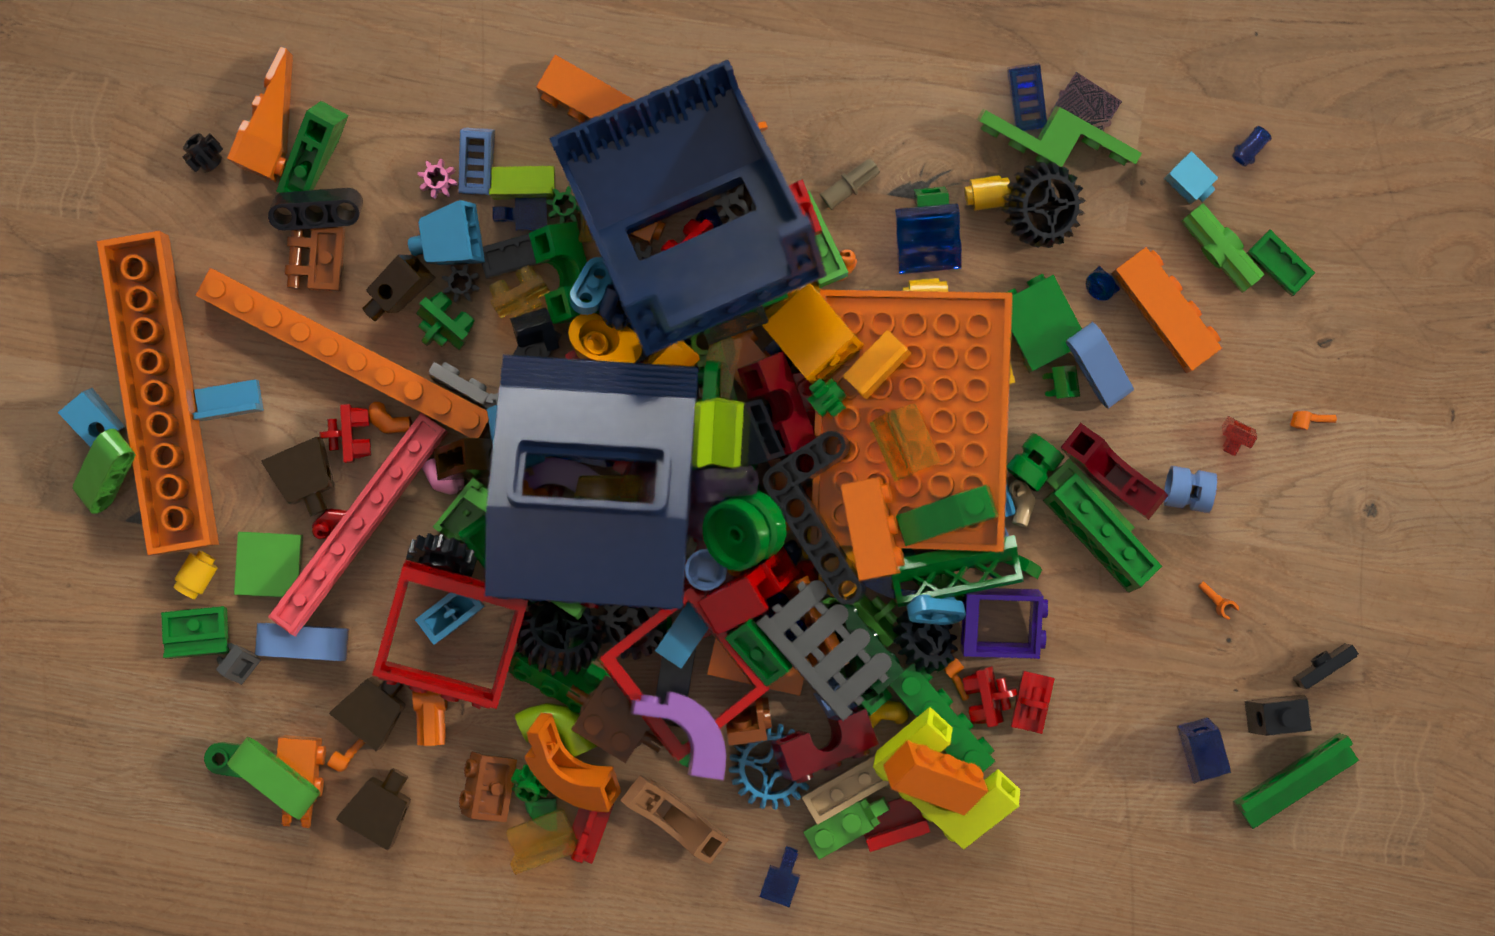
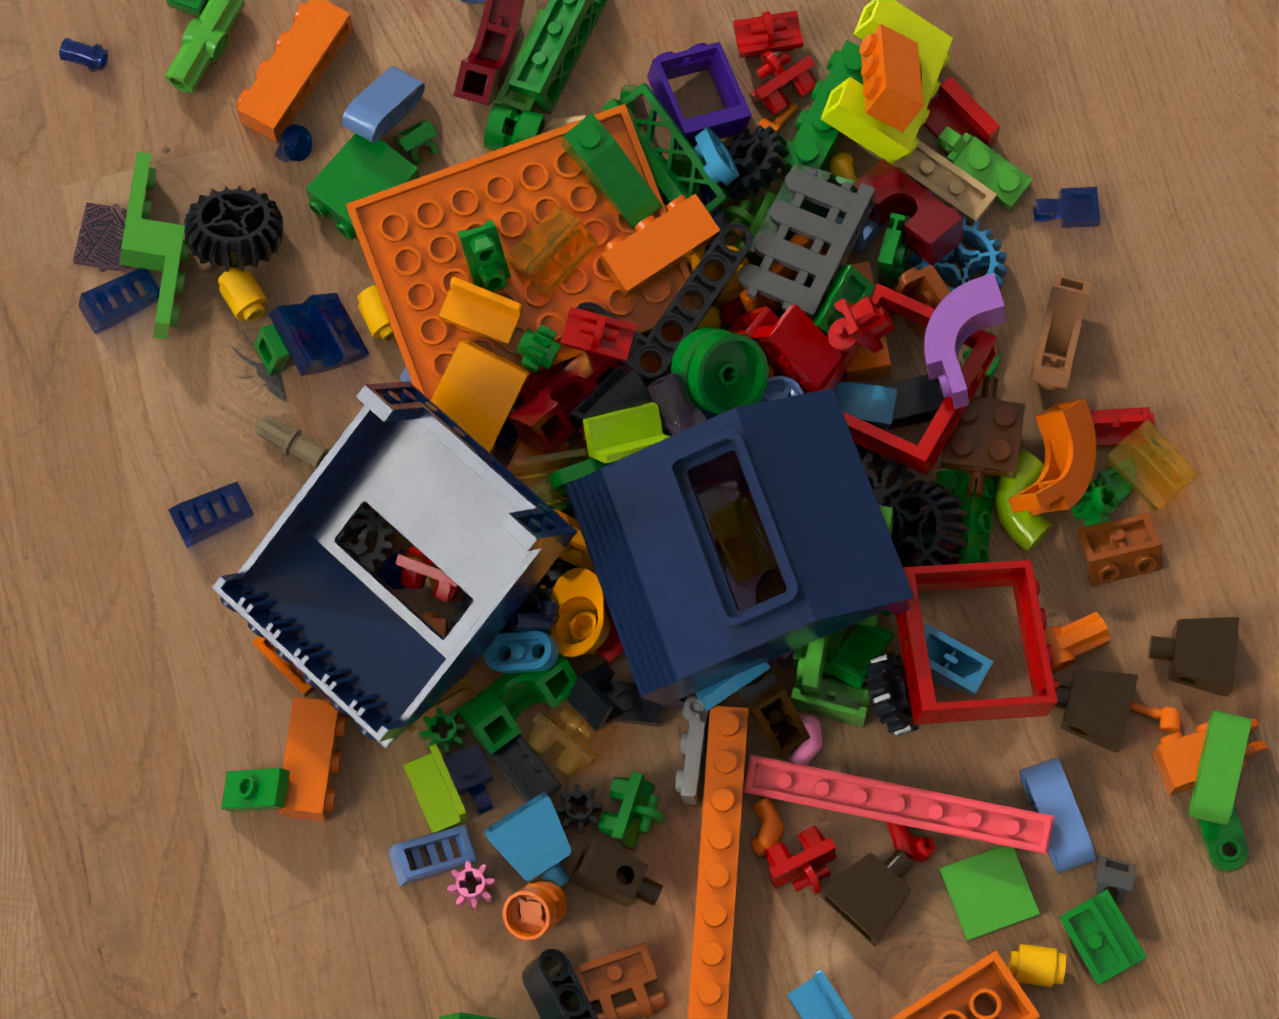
camera: 115 degrees left, 15 degrees down
(394, 216) = (534, 909): none -> orange wheel
(578, 45) = (255, 789): none -> green plate
(729, 654) = (862, 325): none -> red hips
(794, 715) = (893, 252): none -> green plate
(808, 444) = (598, 334): none -> red hips
(817, 71) = (216, 525): none -> clear blue slope
(915, 383) = (485, 256): none -> green hips
(1192, 179) = (143, 98): medium azure brick -> none

